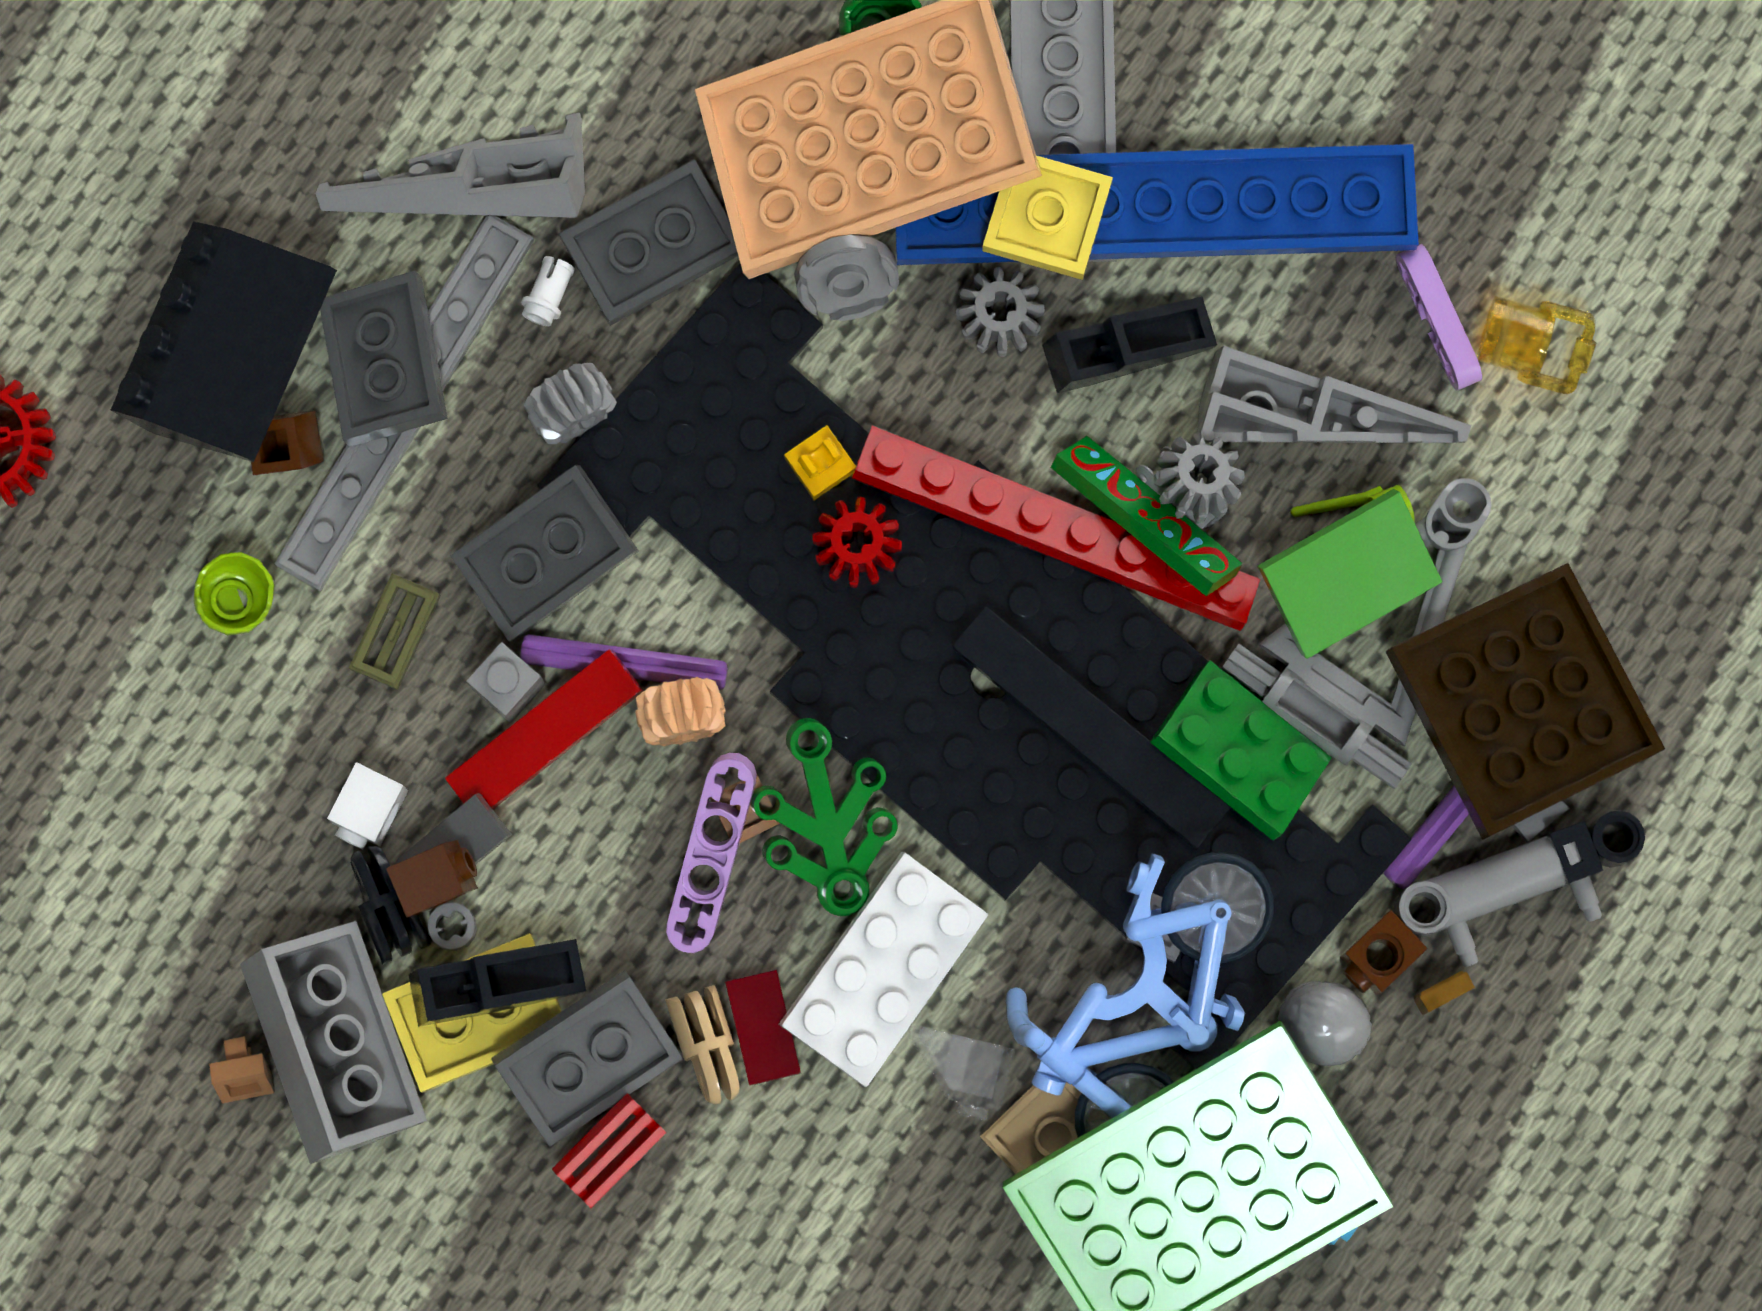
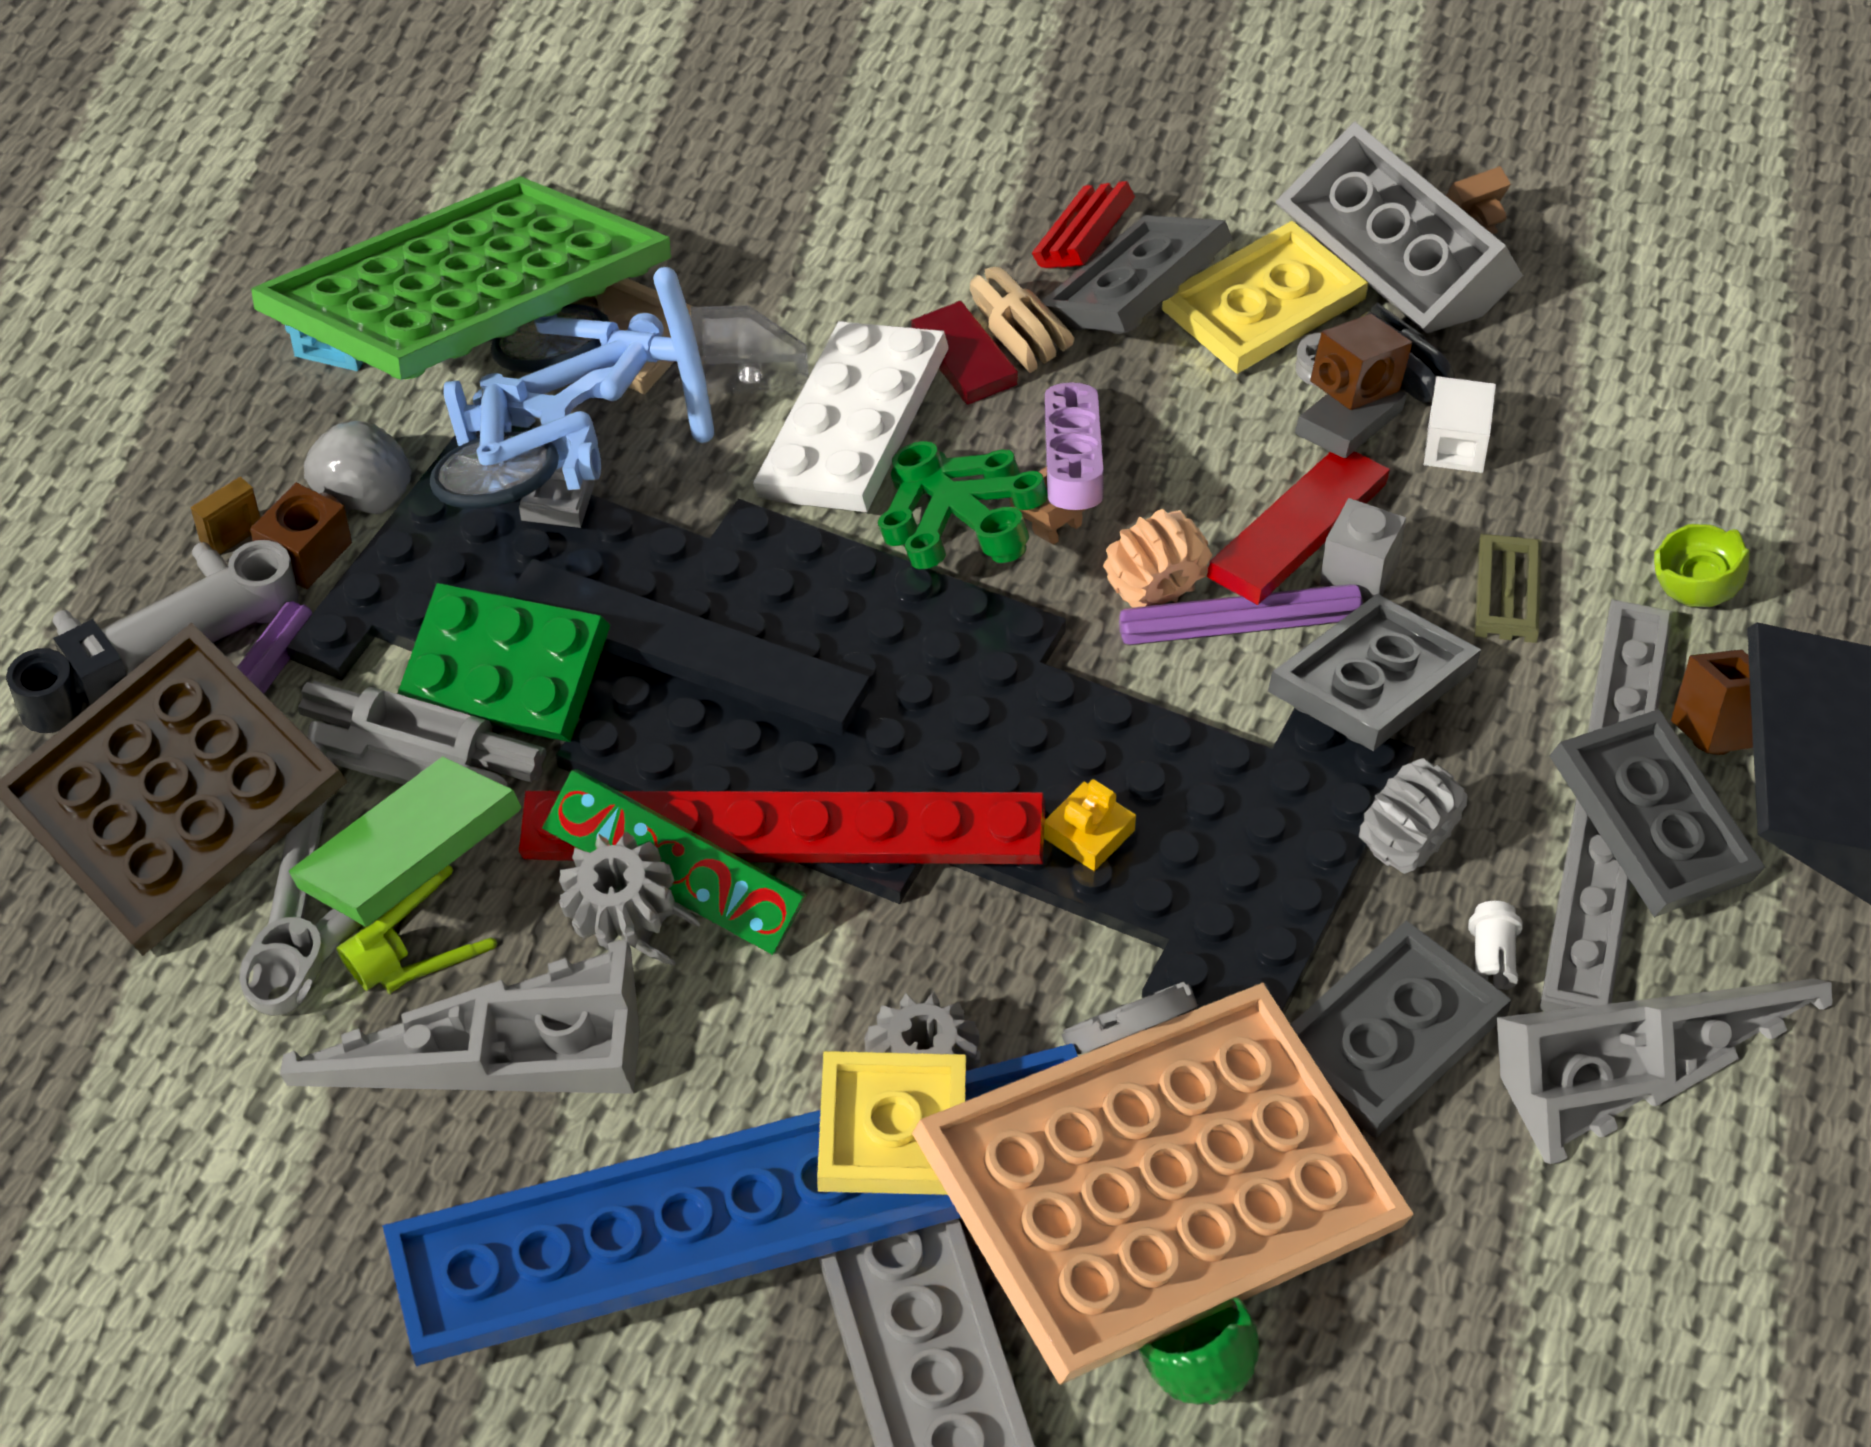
camera: 165 degrees right, 30 degrees down
(496, 982) = (1256, 293): black slope -> none
(870, 553) = (1015, 743): red gear -> none
(1128, 344) = (744, 1058): black slope -> none
(1435, 305) = (339, 1177): lavender beam -> none
(1520, 335) = (222, 1178): clear yellow piece -> none

